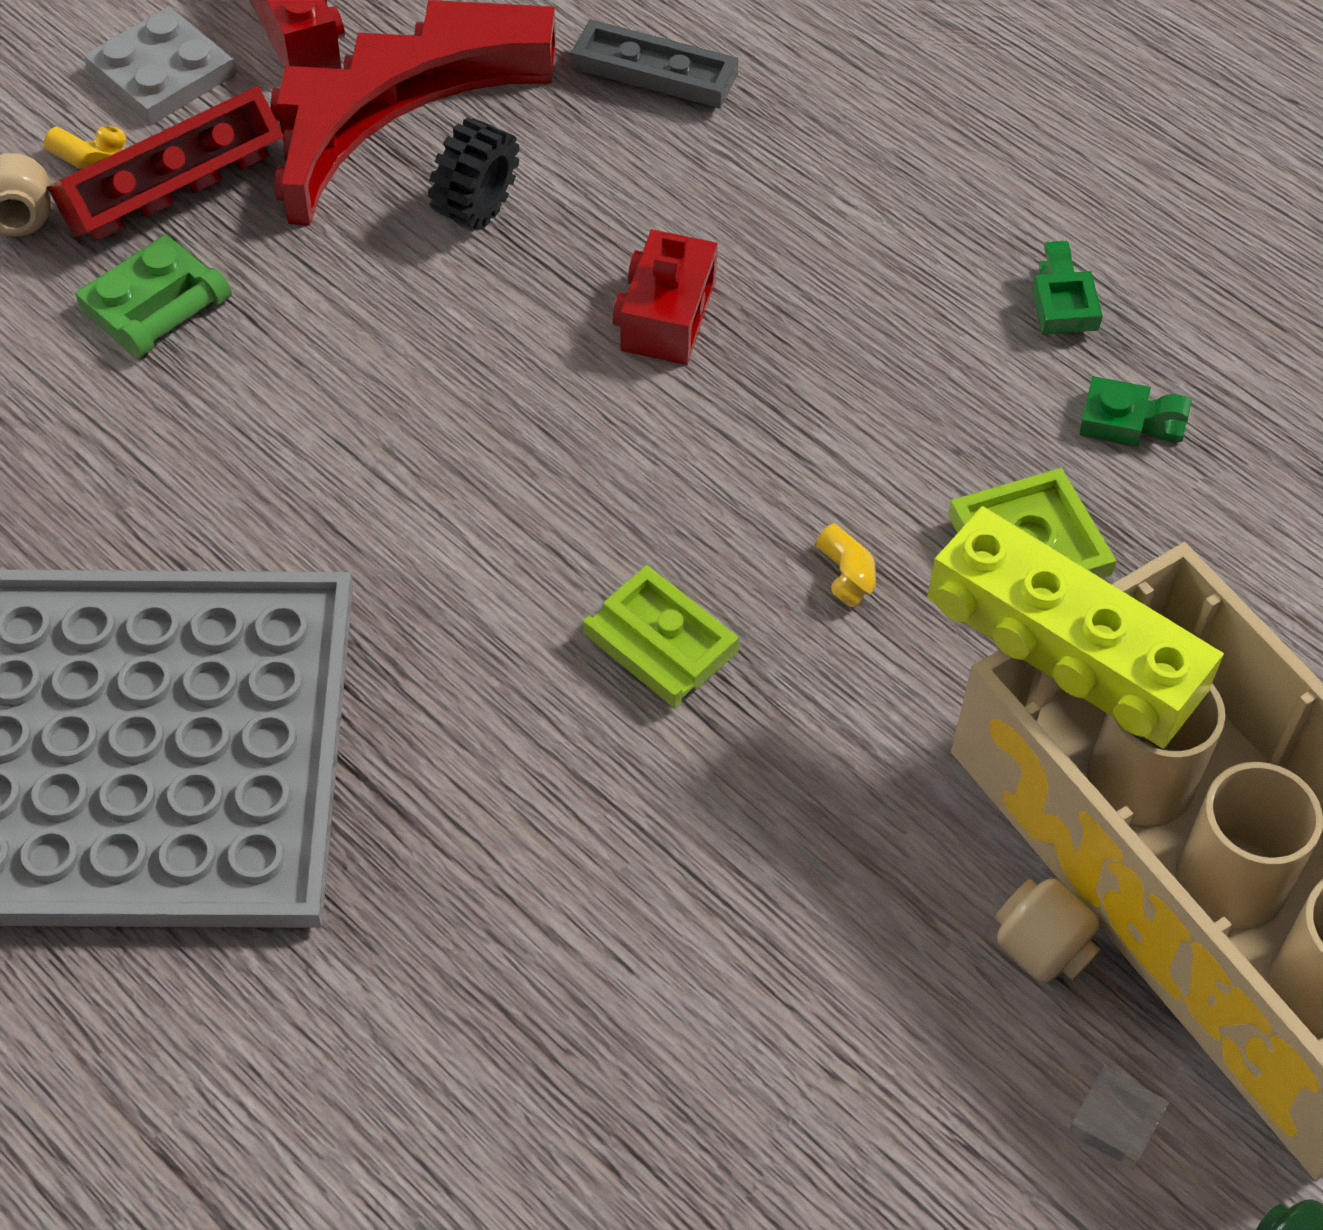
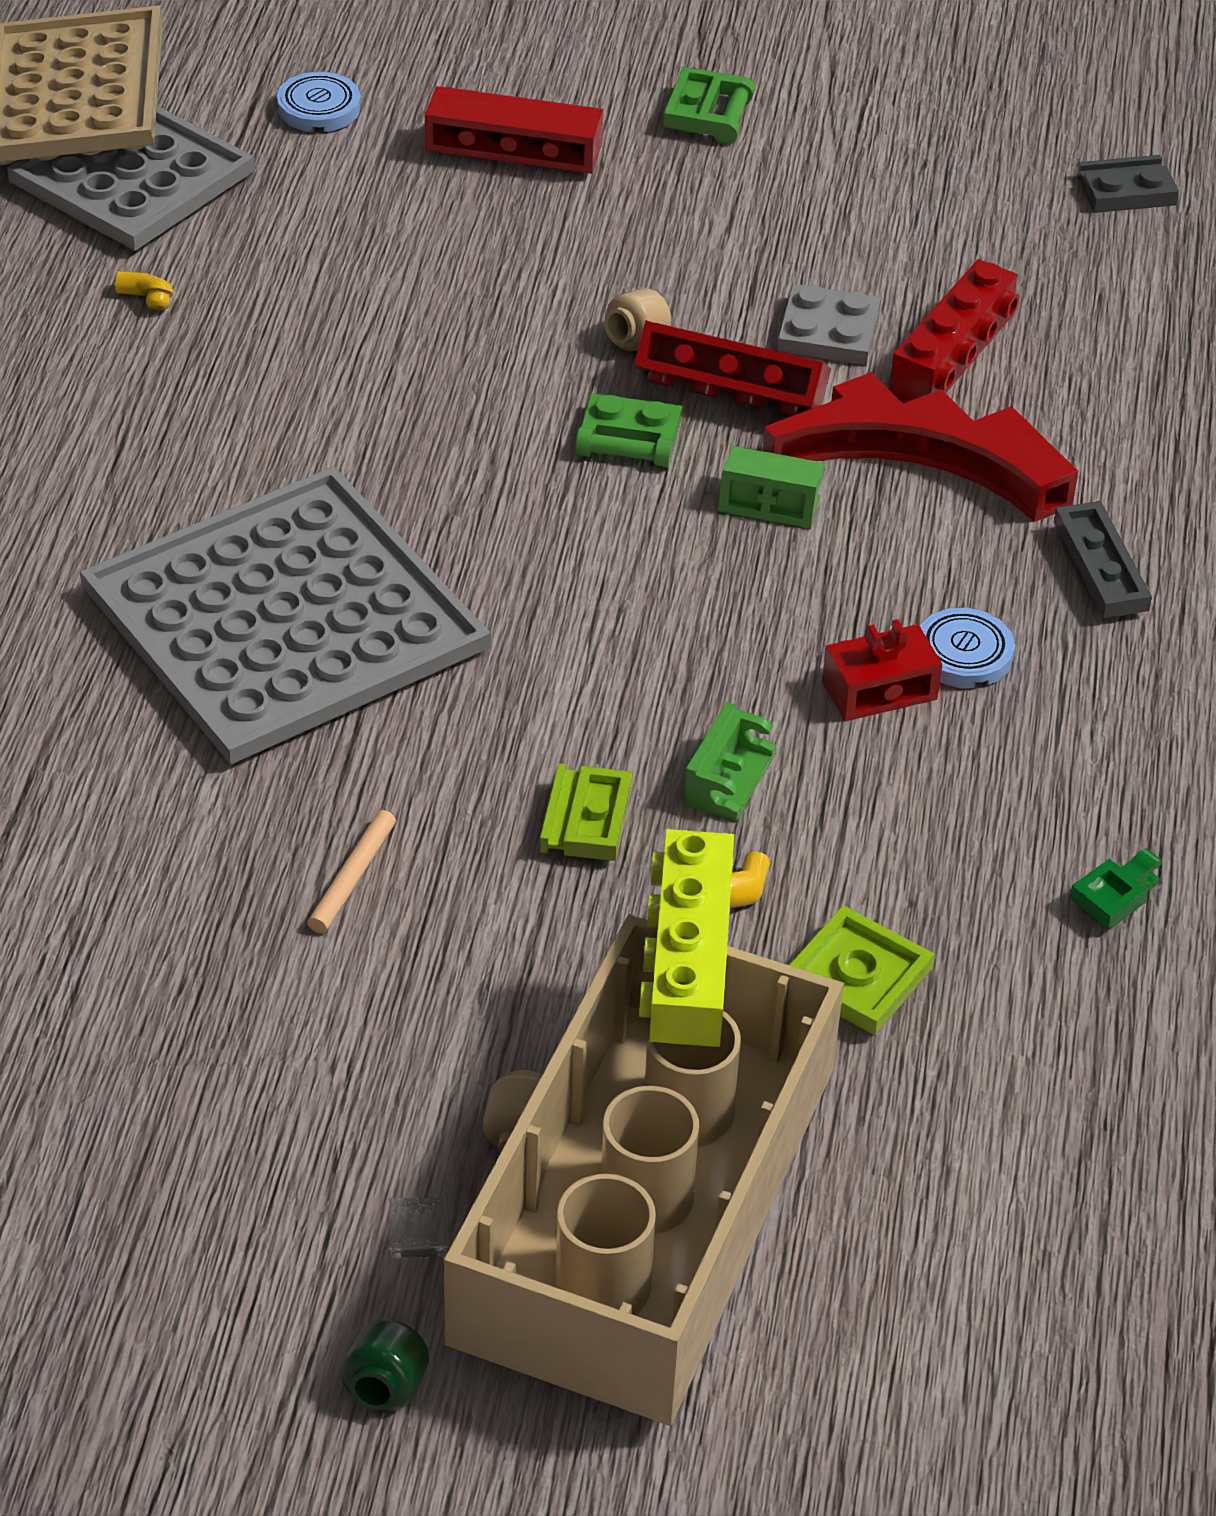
camera: 55 degrees right, 10 degrees down
(84, 153) = (711, 324): yellow arm -> none
(347, 232) = (770, 487): none -> bright green hinge
(473, 173) = (871, 494): black tyre -> none
(574, 898) = (351, 872): none -> light nougat bar
(678, 207) = (970, 646): none -> light blue tile
(687, 484) = (728, 764): none -> bright green hinge
(1122, 412) = (1040, 976): green plate -> none

